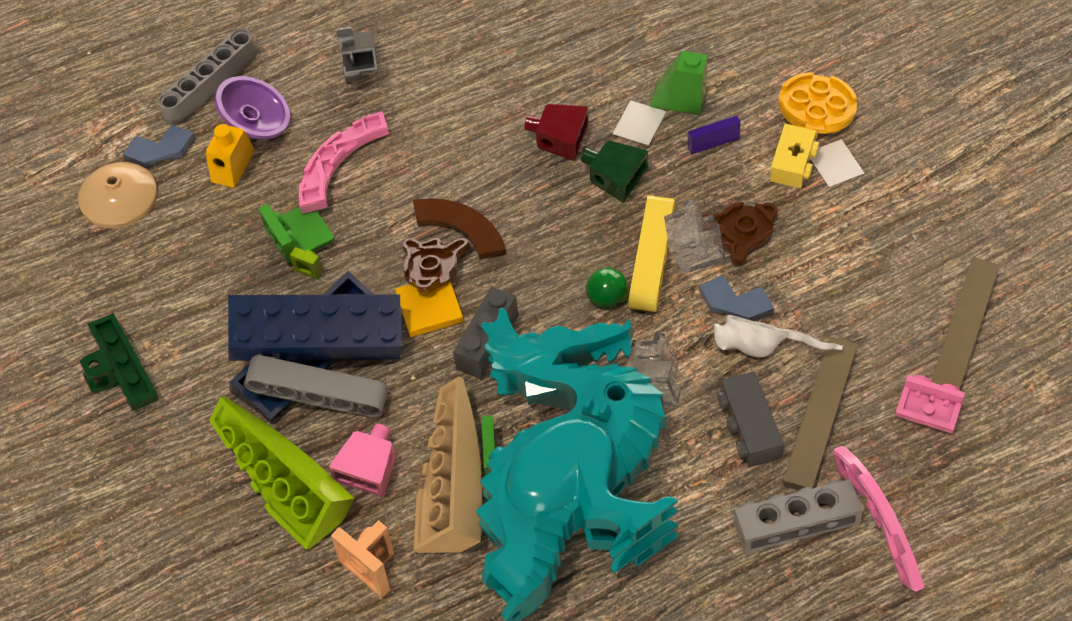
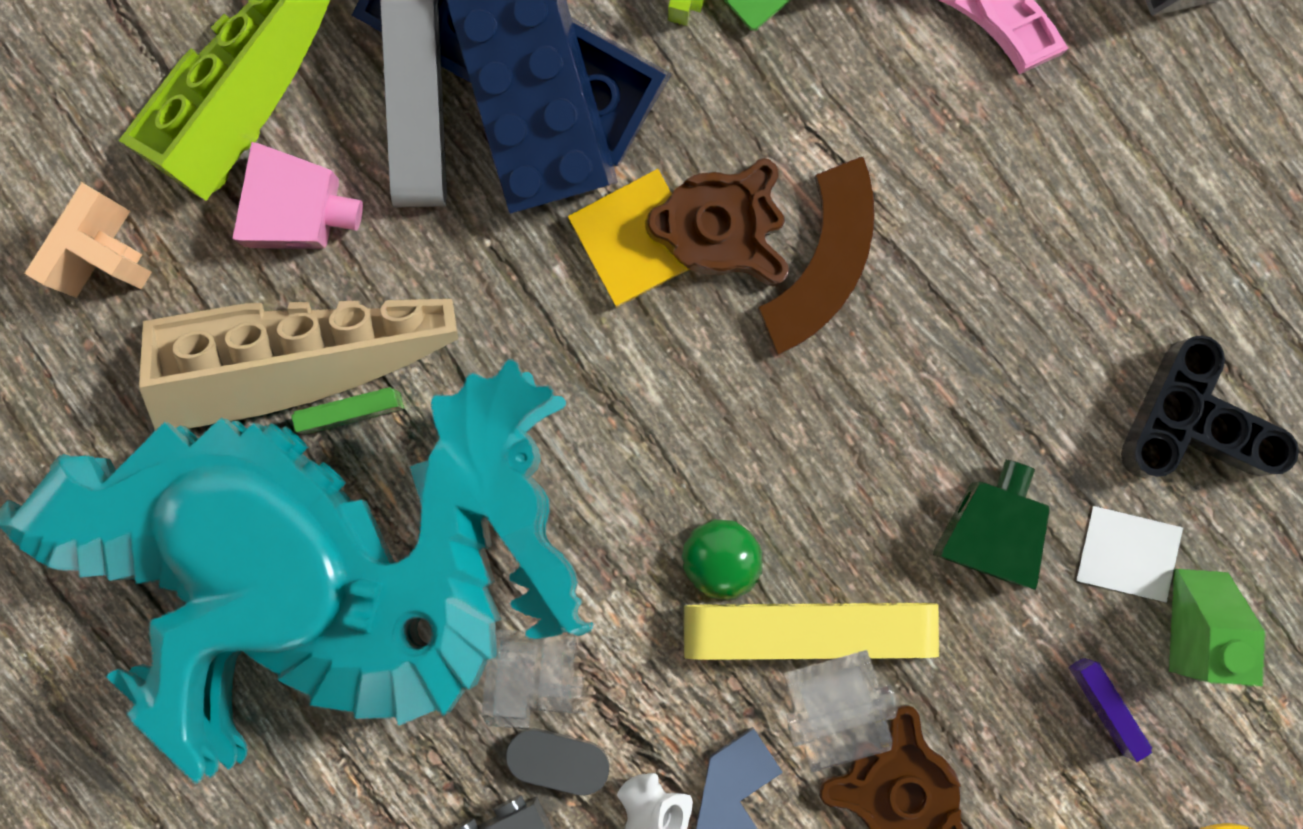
camera: 70 degrees right, 30 degrees up
(470, 352) = (581, 356): dark grey brick -> none
(560, 129) = (1076, 403): dark red torso -> none
(580, 82) = (1195, 420): none -> black beam
(702, 378) = (558, 761): none -> dark grey tile

